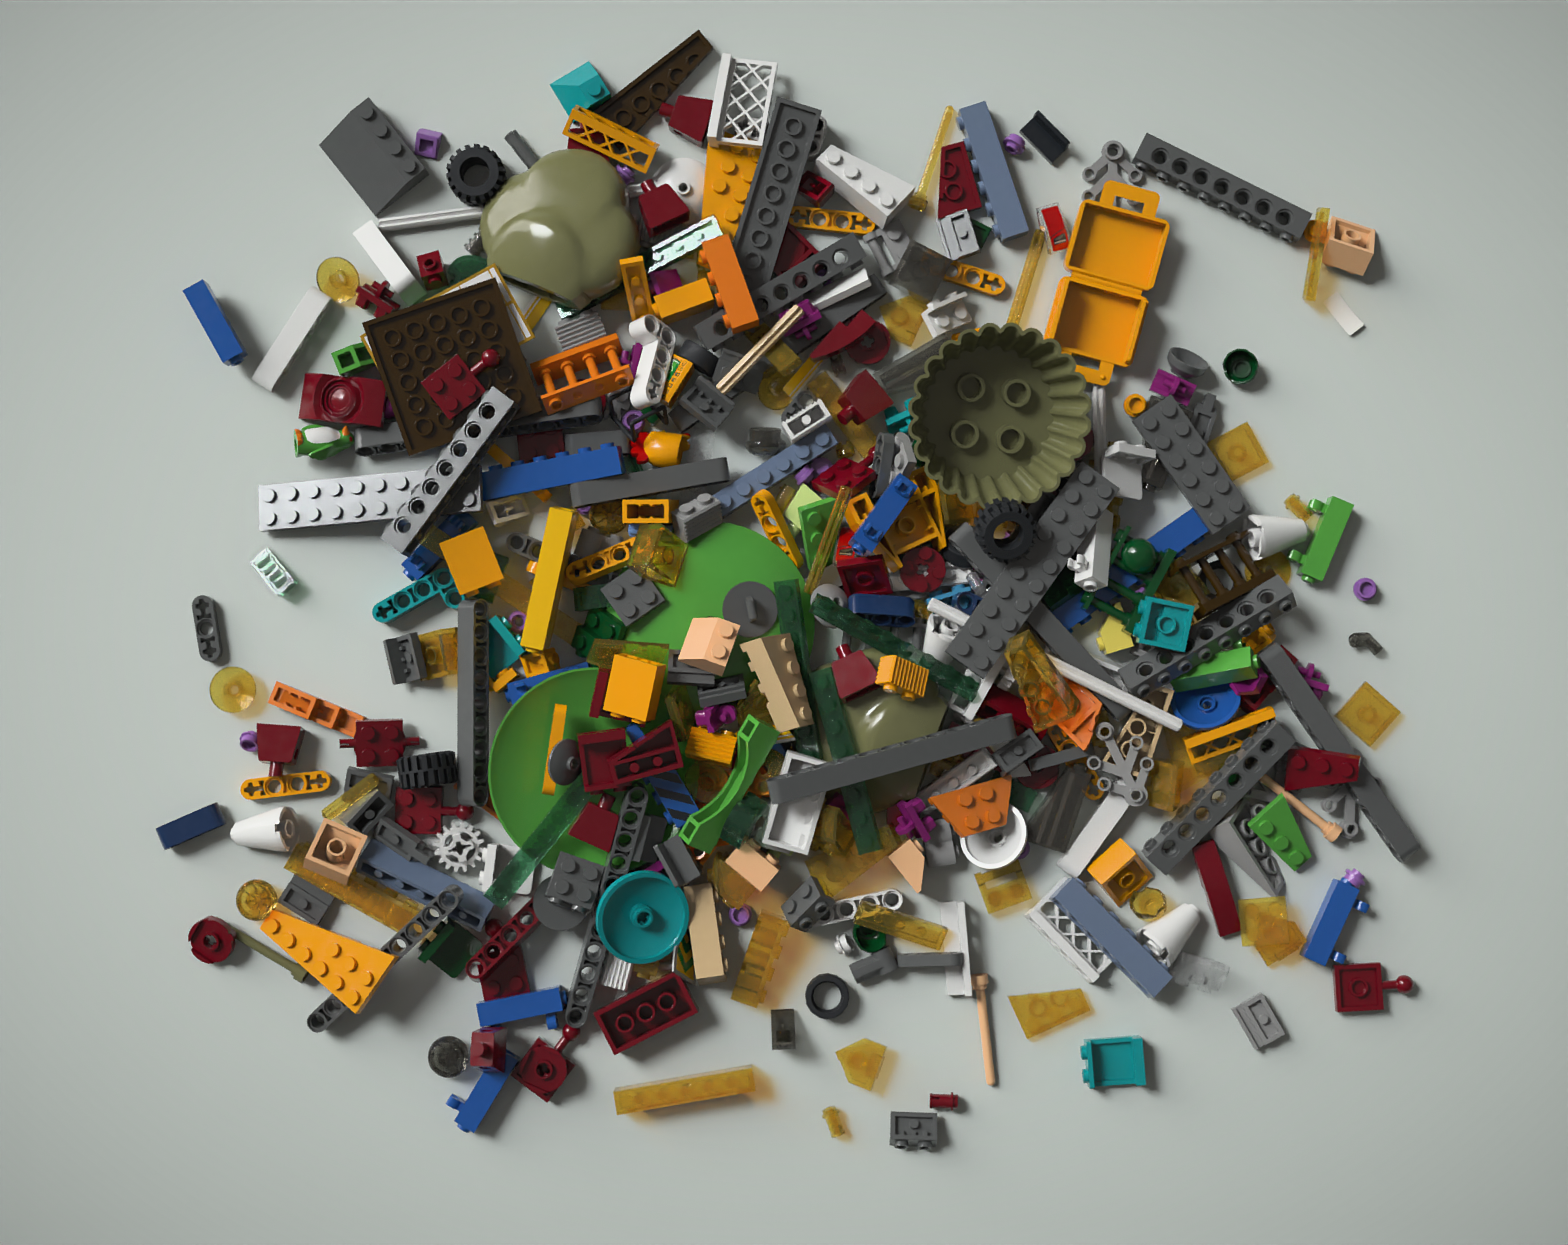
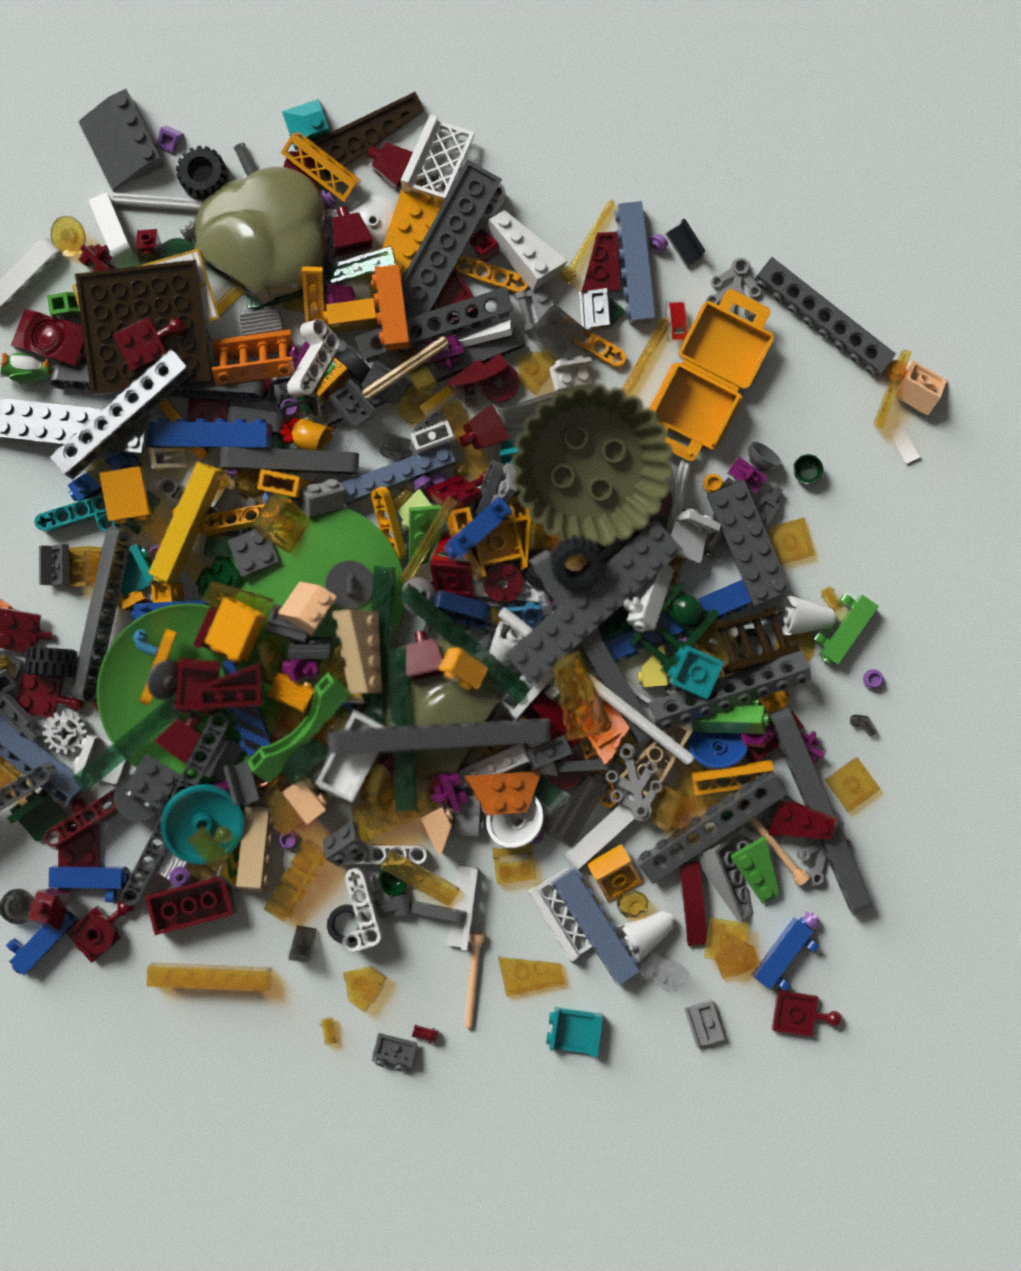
camera: 10 degrees right, 0 degrees up
(531, 727) = (142, 643): none -> dark azure arm
(621, 979) = (176, 871): none -> medium lavender plate
(656, 940) = (209, 847): none -> clear yellow plate
(840, 973) = (368, 905): none -> white beam

